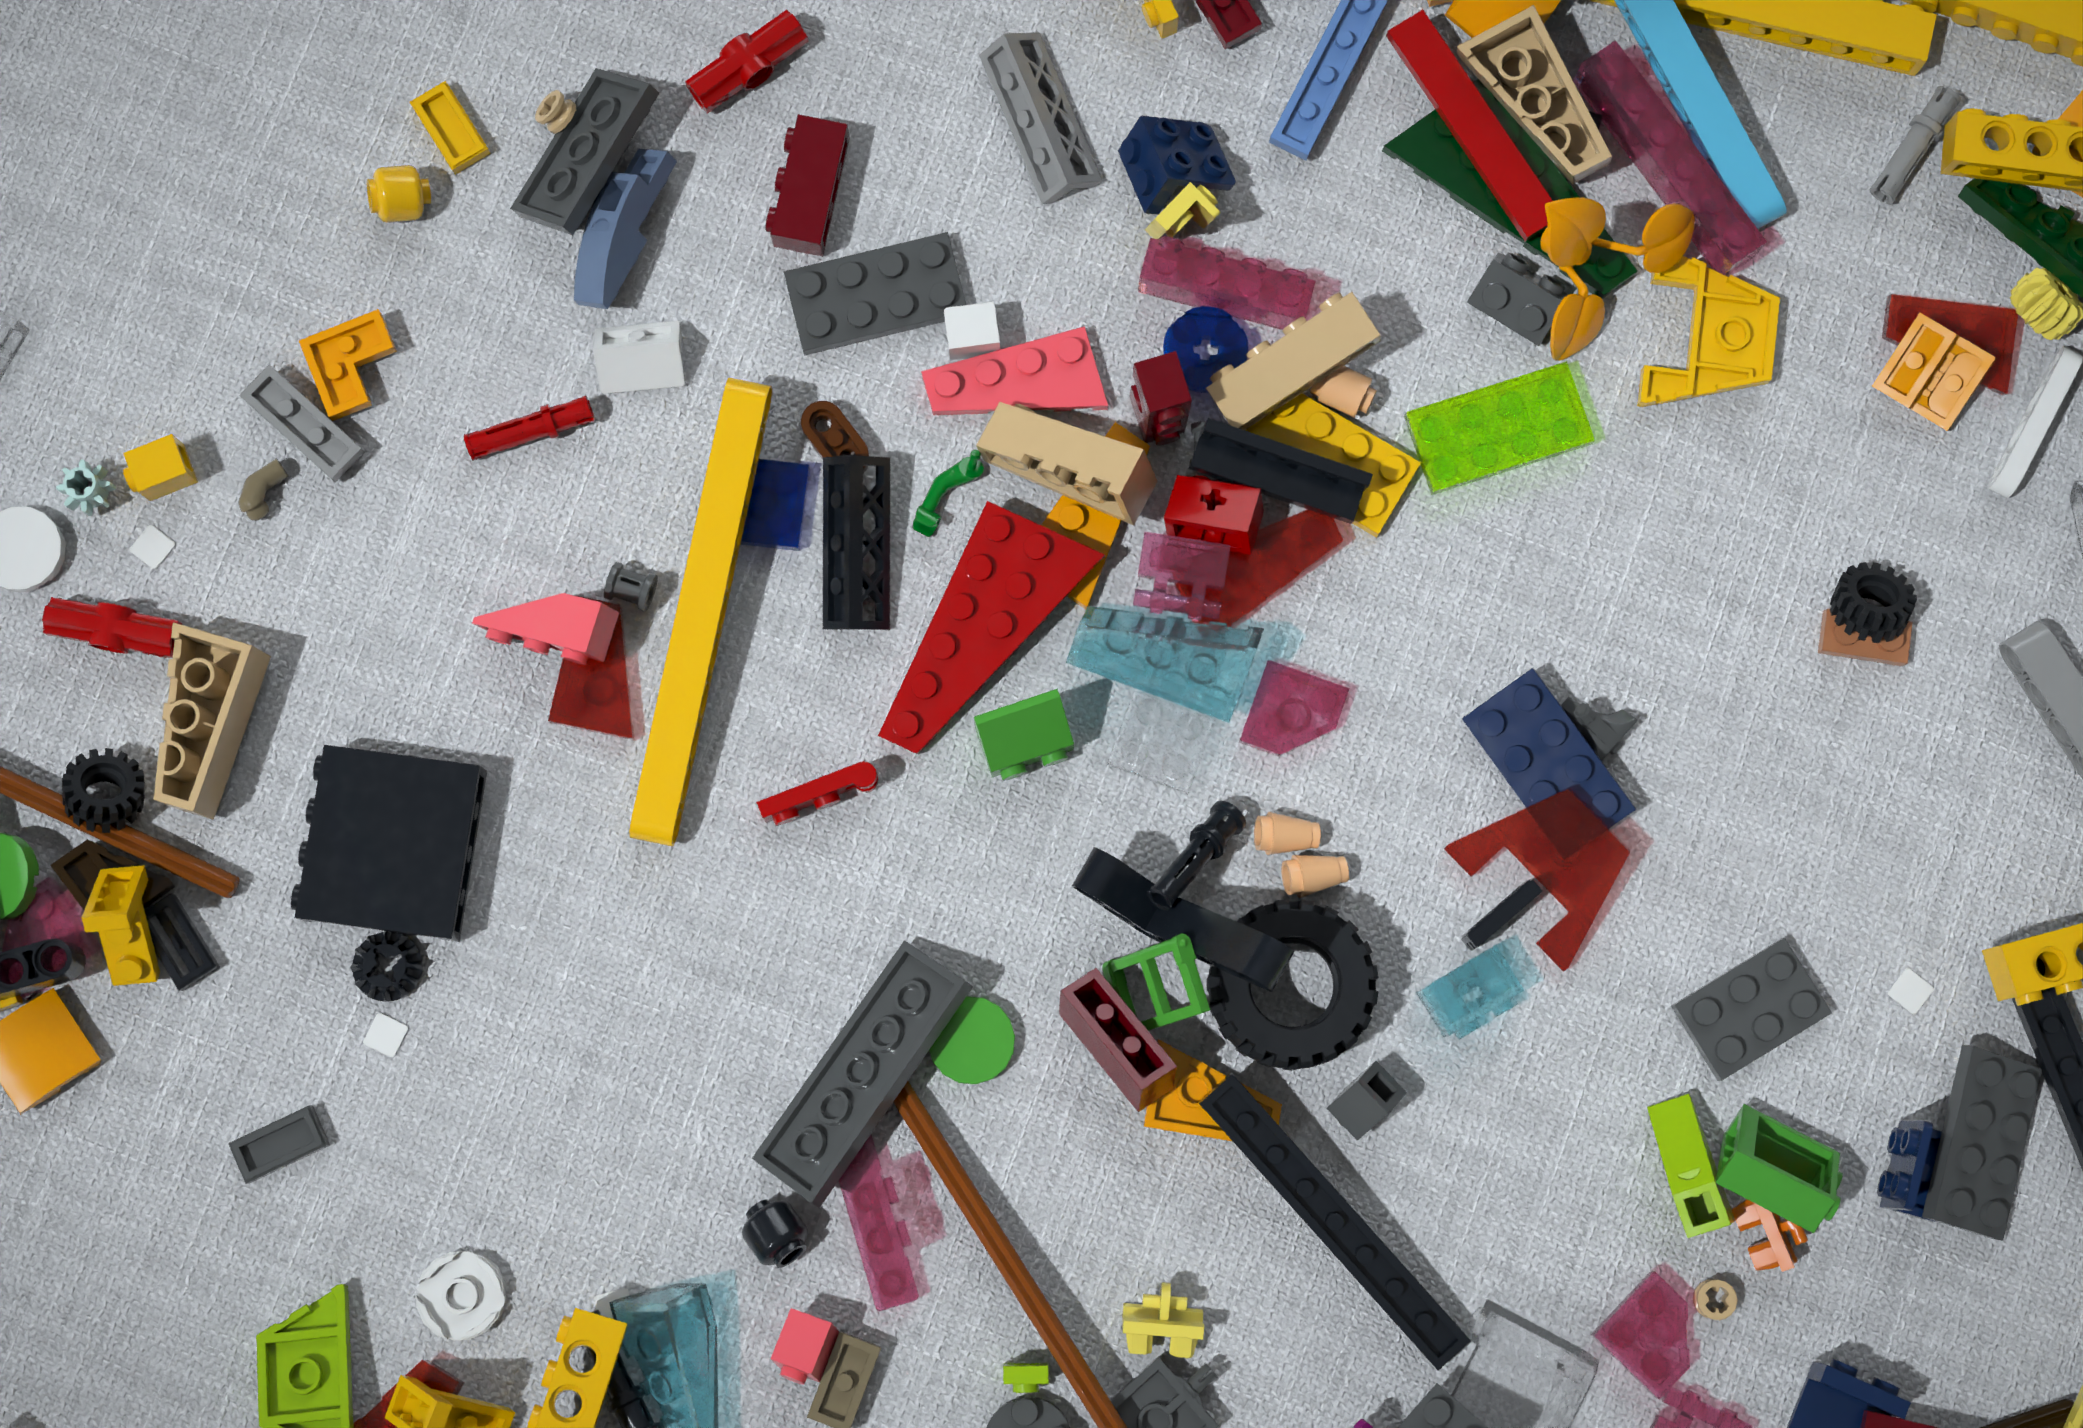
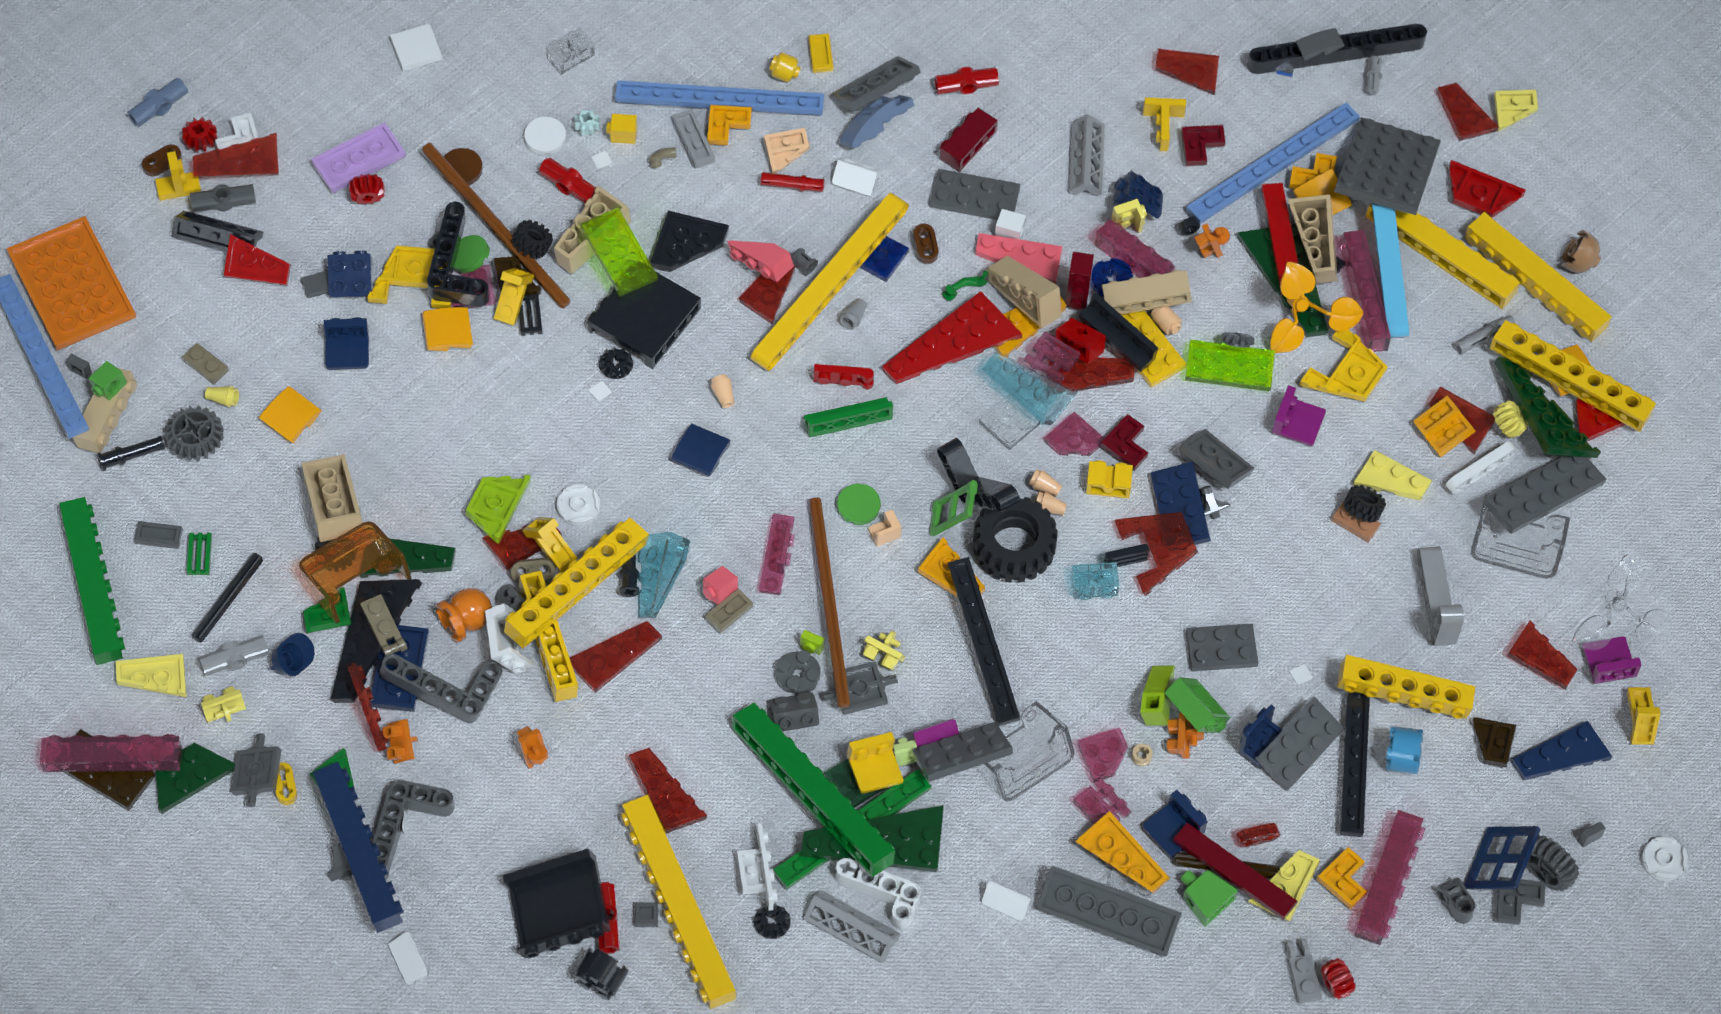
camera: 25 degrees right, 20 degrees down
(279, 1144) = (531, 411): dark grey tile -> none
(281, 753) = (619, 252): none -> clear neon green plate
(306, 314) = (708, 95): none -> medium blue plate
(391, 647) = (686, 239): none -> black plate
(481, 362) = (785, 147): none -> light nougat wing
(555, 111) = (871, 64): tan bush -> none
(613, 930) = (723, 390): none -> light nougat cone
(630, 1073) = (700, 449): none -> dark blue slope
(774, 651) = (853, 314): none -> light grey cone
(775, 1233) = (730, 538): black head -> none
(848, 543) = (906, 284): black fence -> none
(862, 1073) = (803, 490): dark grey plate -> none
(865, 869) = (848, 417): none -> green fence
(1024, 735) = (947, 388): bright green slope -> none
(1043, 1071) = (886, 530): none -> light nougat panel
(1117, 1039) = (924, 523): brick -> none
(1218, 833) = (1005, 467): black pin -> none
(1293, 175) = (1189, 226): none -> black tile
(1353, 190) = (1209, 241): none -> orange hips
(1366, 1100) = (1024, 600): dark grey brick -> none
(1380, 685) = (1121, 445): none -> dark red plate
(1397, 770) = (1109, 480): none -> yellow brick
(1491, 372) = (1237, 339): none -> dark grey gear
(1518, 297) = (1264, 315): dark grey bracket -> none
(1569, 638) = (1216, 458): none -> dark grey plate
(1671, 480) = (1298, 419): none -> magenta bracket
(1884, 515) = (1389, 475): none -> light yellow wing
(1994, 1362) = (1258, 835): none -> clear red beam

